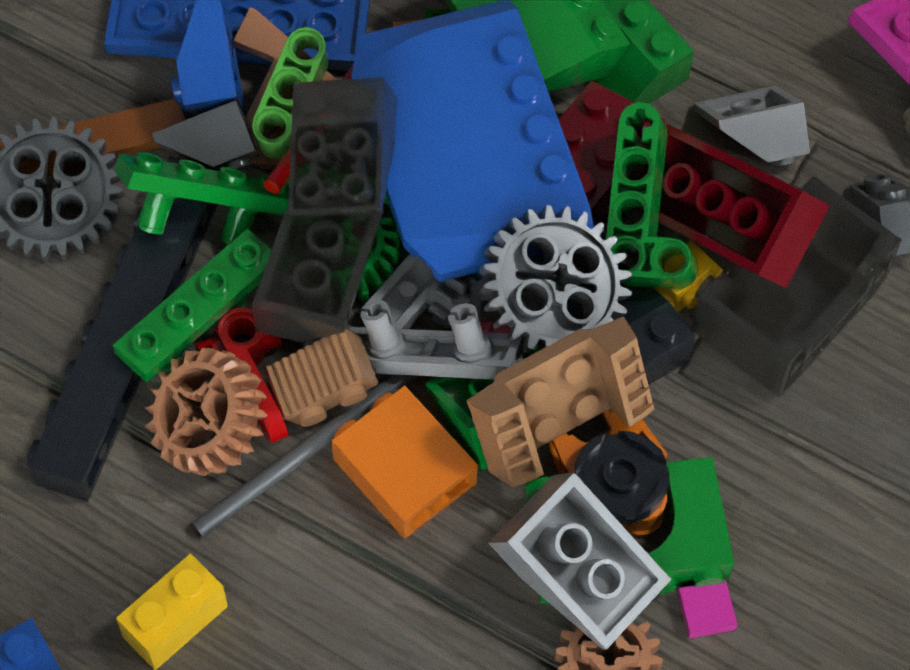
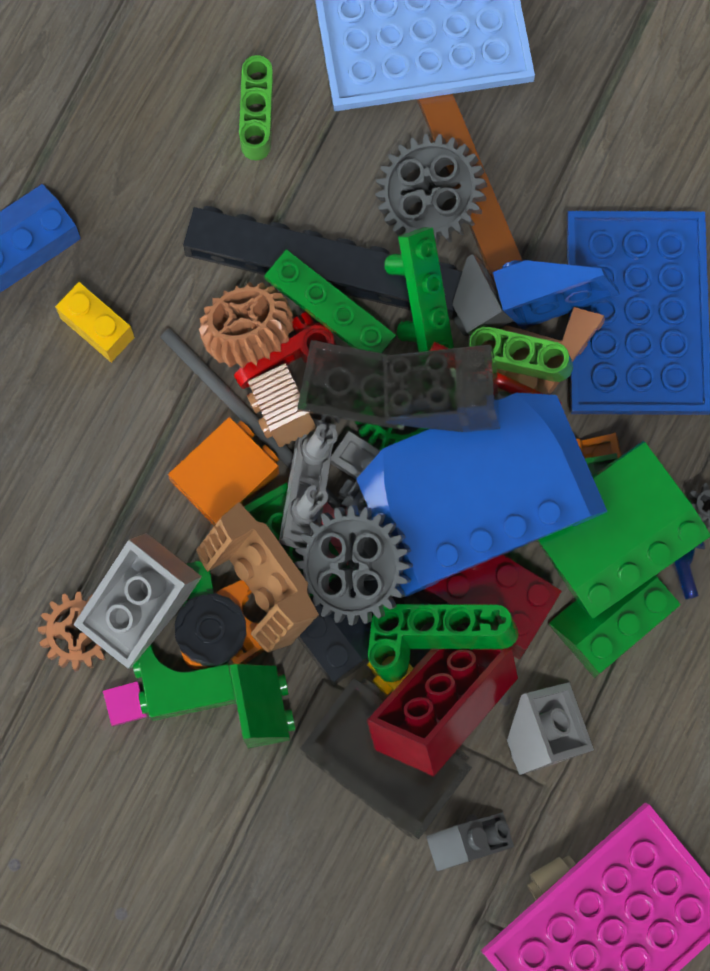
camera: 85 degrees right, 15 degrees up
(733, 431) = (261, 705): none -> green slope

